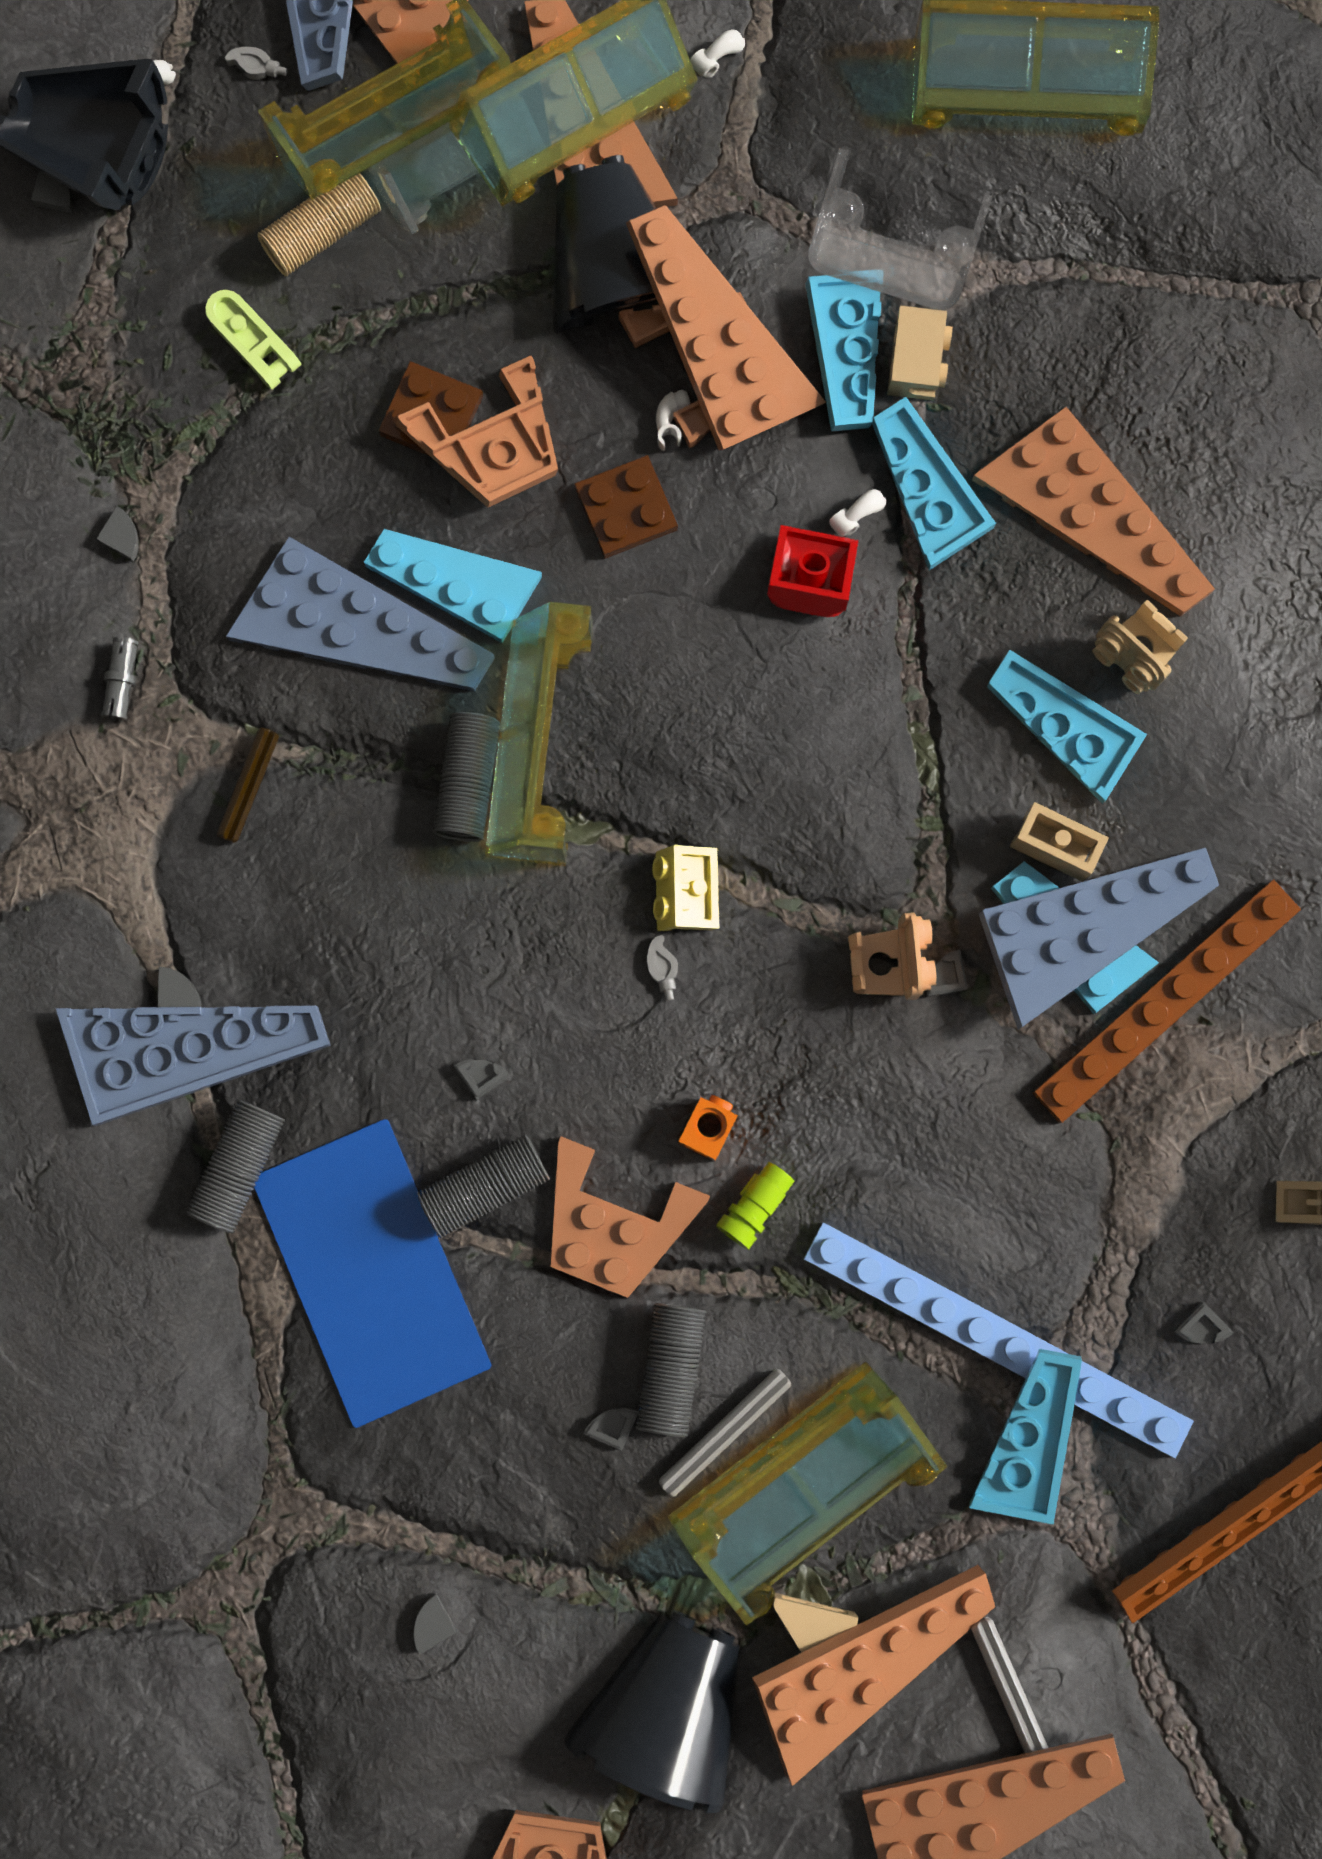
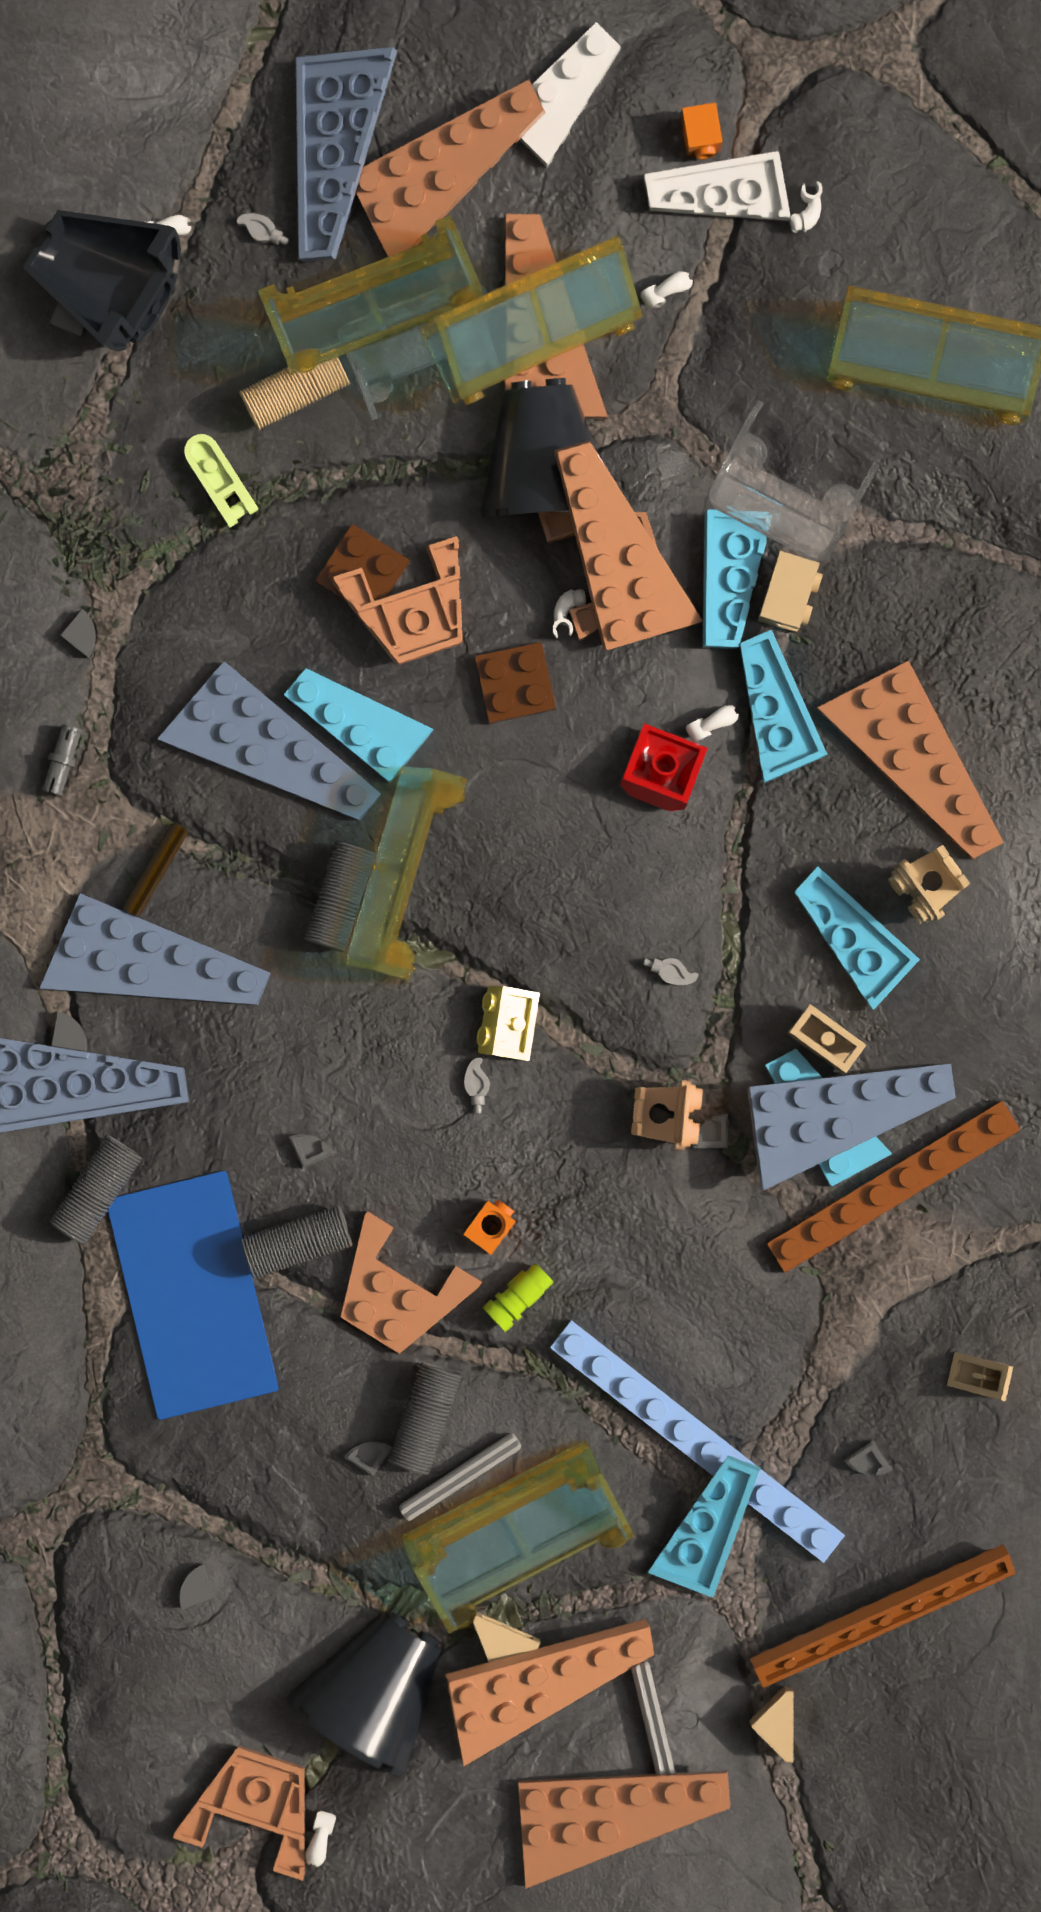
camera: 10 degrees right, 5 degrees up
(237, 889) = (131, 957): none -> sand blue wing
(864, 799) = (671, 971): none -> light grey piece
(1158, 1662) = (775, 1723): none -> tan slope

